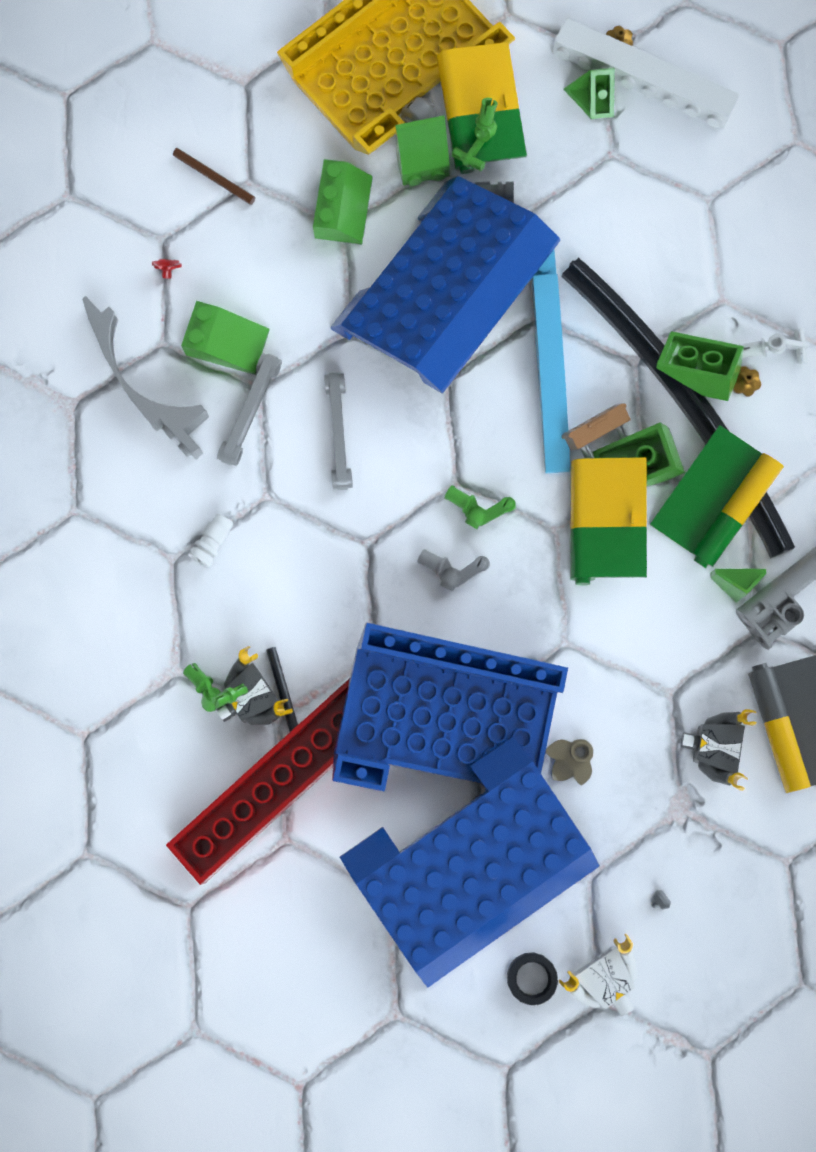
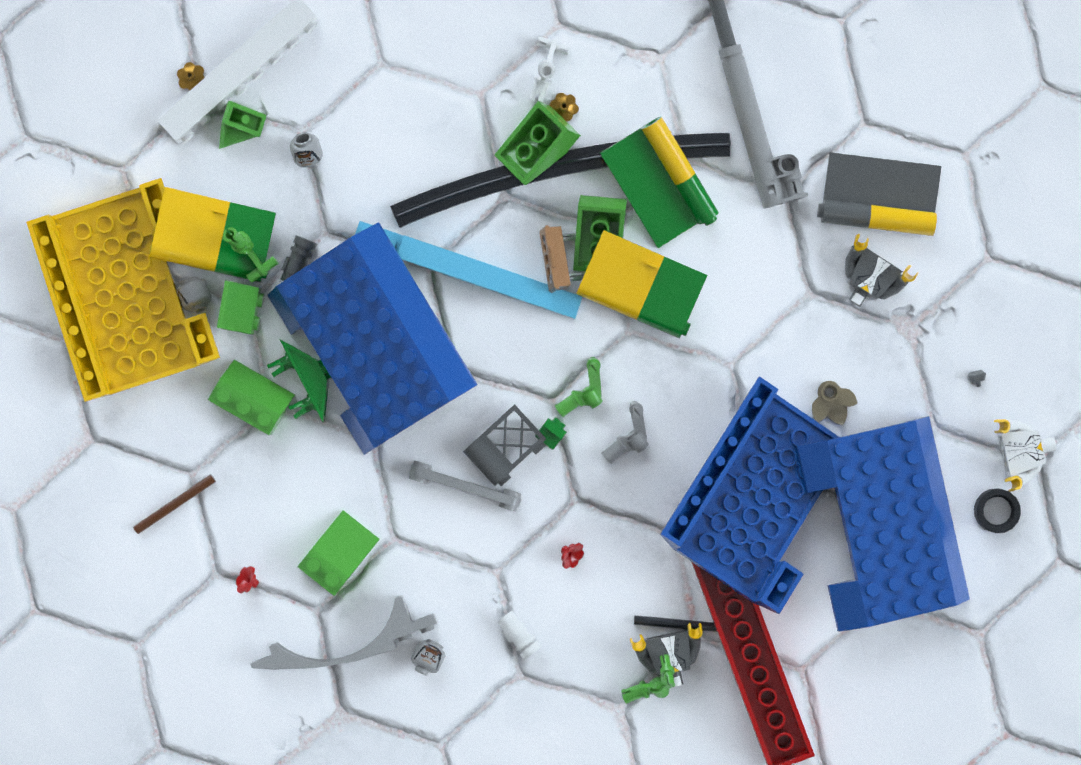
camera: 70 degrees left, 10 degrees up
(156, 461) = (428, 657): none -> light grey head
(231, 451) = (444, 587): light grey piece -> none
(311, 560) = (571, 555): none -> red plant
(374, 445) = (494, 462): none -> dark grey piece
(382, 249) = (312, 375): none -> green connector
(424, 491) = (553, 432): none -> green bracket
(598, 159) = (306, 150): none -> light grey head
(737, 582) = (741, 194): bright green slope -> none

